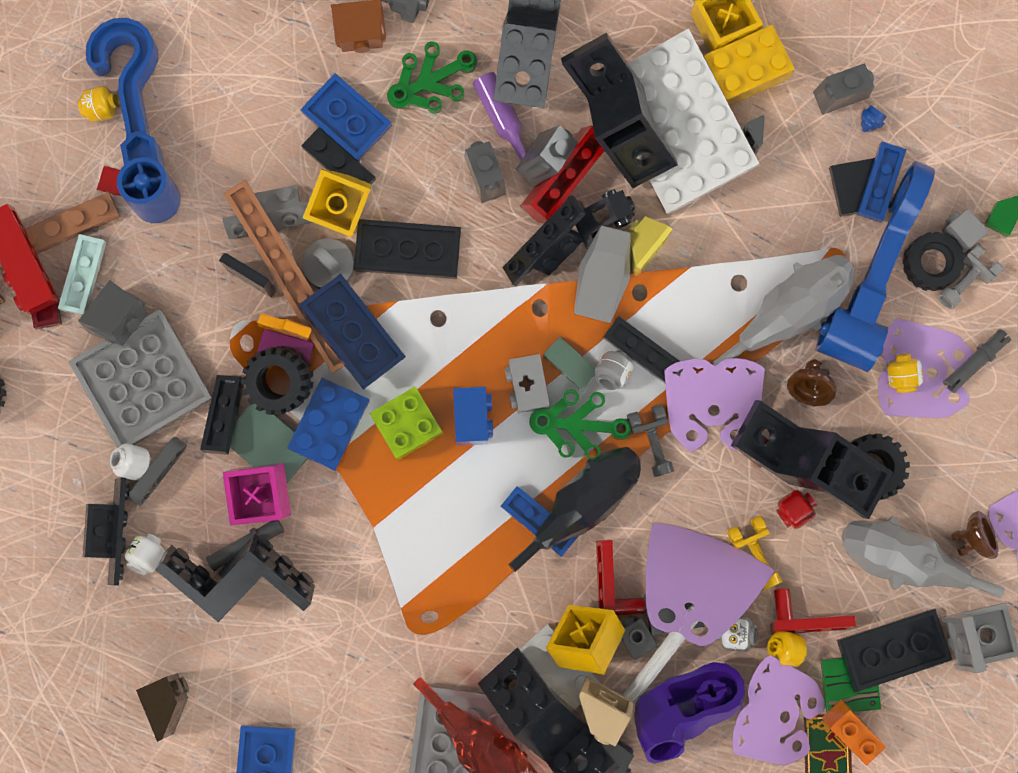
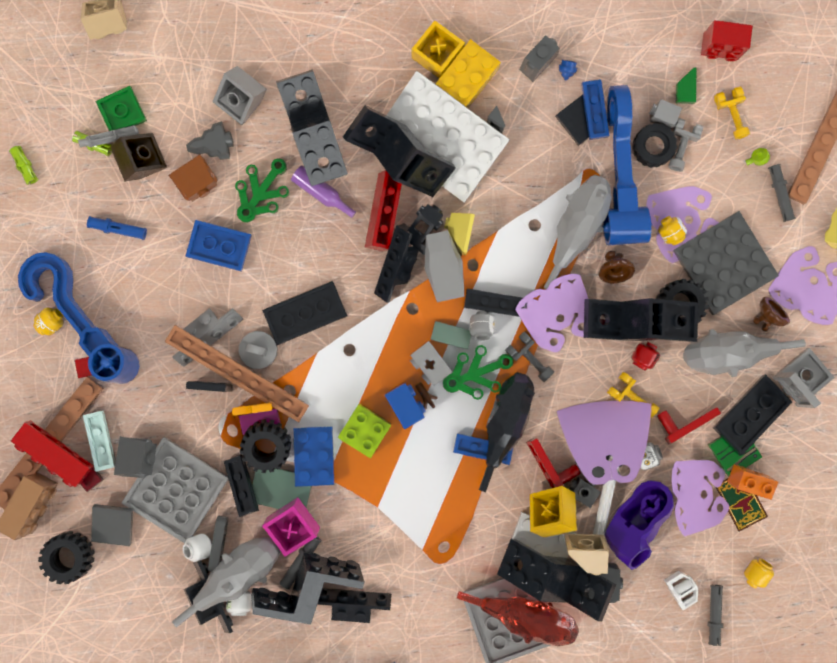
camera: 25 degrees left, 5 degrees up
(42, 382) = (112, 525): none -> dark grey tile
(158, 516) = (234, 575): none -> light grey piece
(228, 30) = (118, 228): none -> blue pin
(281, 631) = (354, 605): none -> black bracket
(334, 157) = (229, 278): black plate -> none
(337, 201) = (243, 307): yellow slope -> none
(351, 331) = (297, 389): dark blue plate -> none
(485, 171) = (329, 235): dark grey torso -> none
(502, 421) = (426, 396): none -> reddish brown bar
(546, 155) = (365, 204): dark grey torso -> none
(788, 648) = (684, 450): yellow head -> none
(953, 447) = (726, 262): none -> dark grey plate
(984, 353) = (717, 190): dark grey pin -> none

